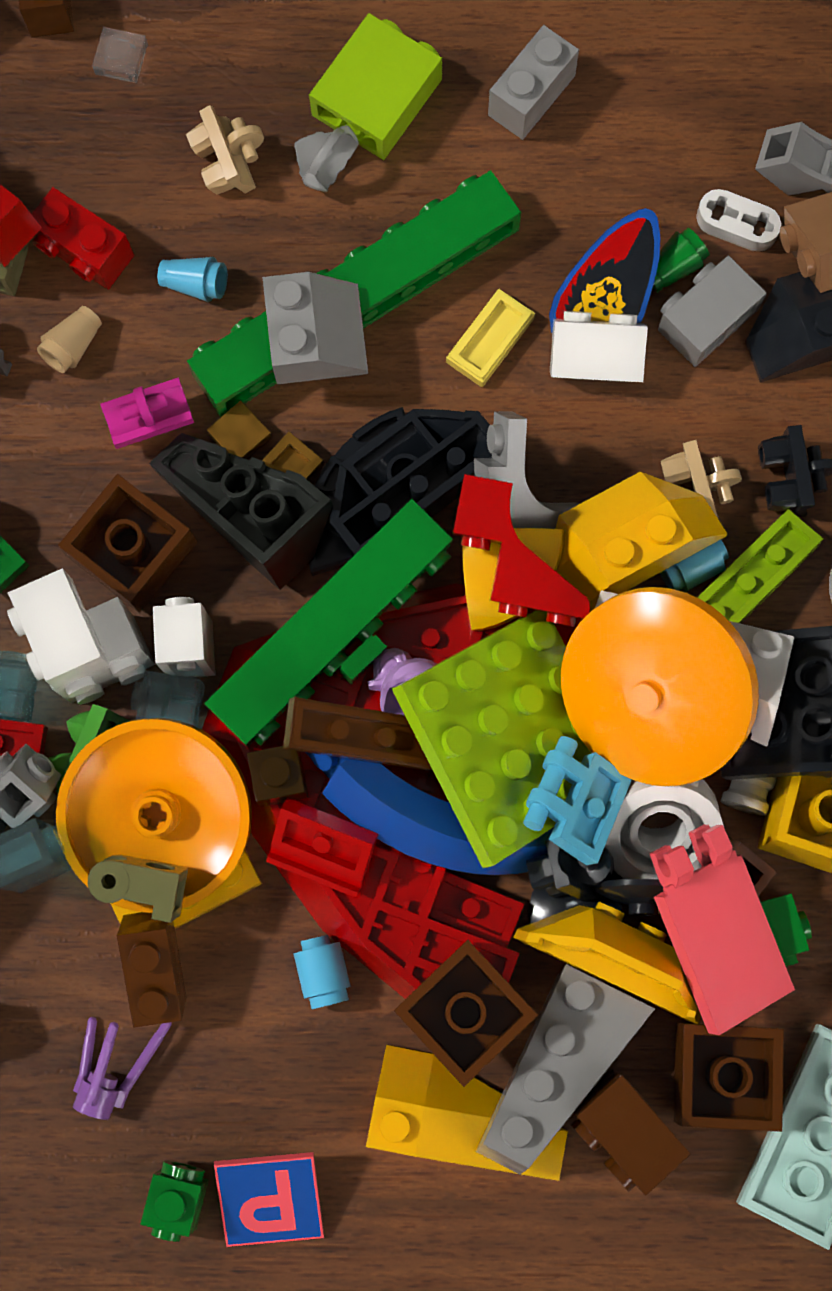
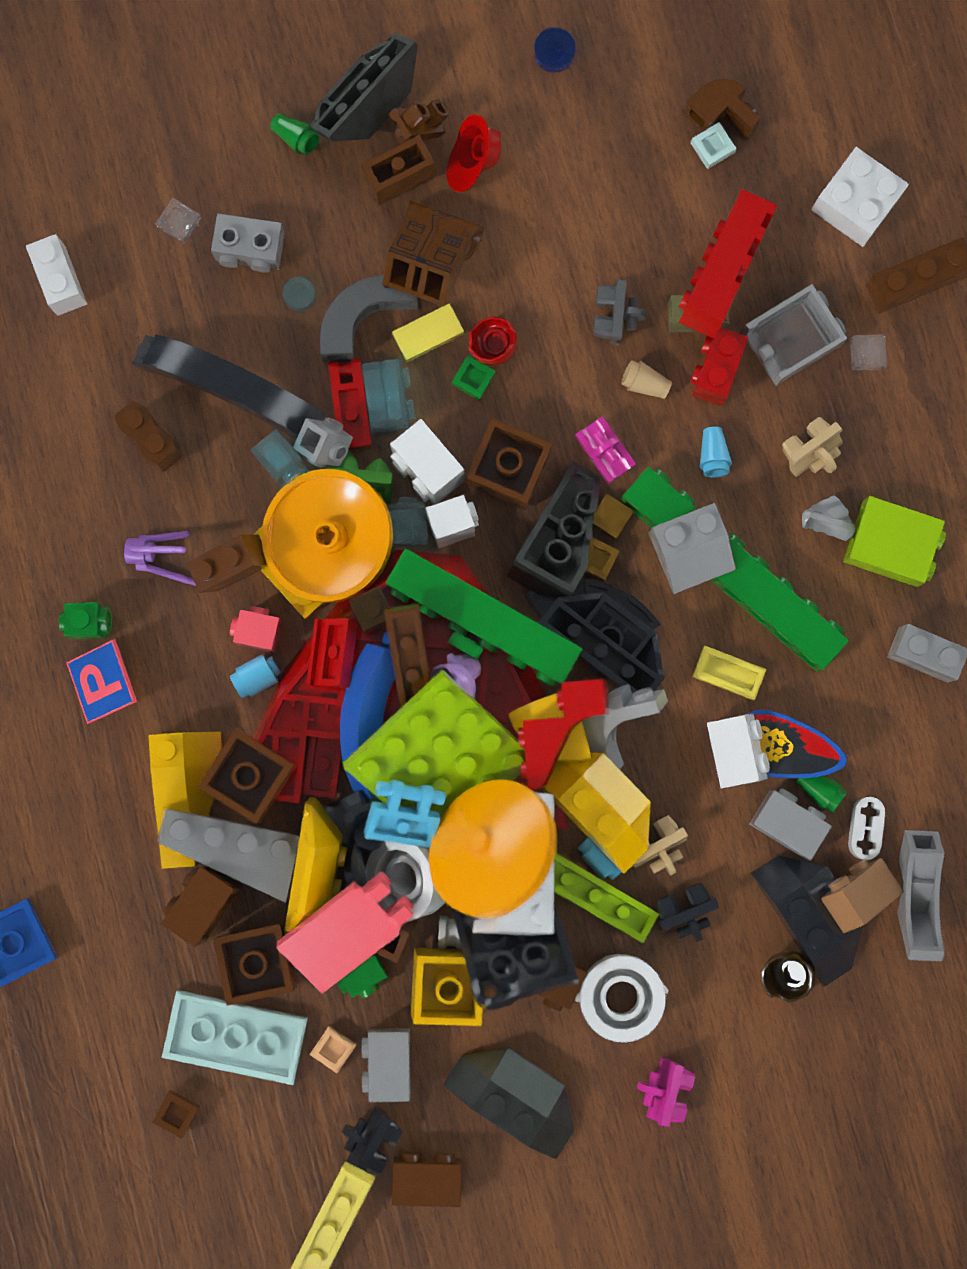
camera: 70 degrees right, 5 degrees up
(56, 629) = (427, 436): white brick -> none
(68, 134) = (795, 334): none -> window
(140, 882) = (279, 540): olive leg -> none
(256, 954) = (256, 629): none -> coral brick

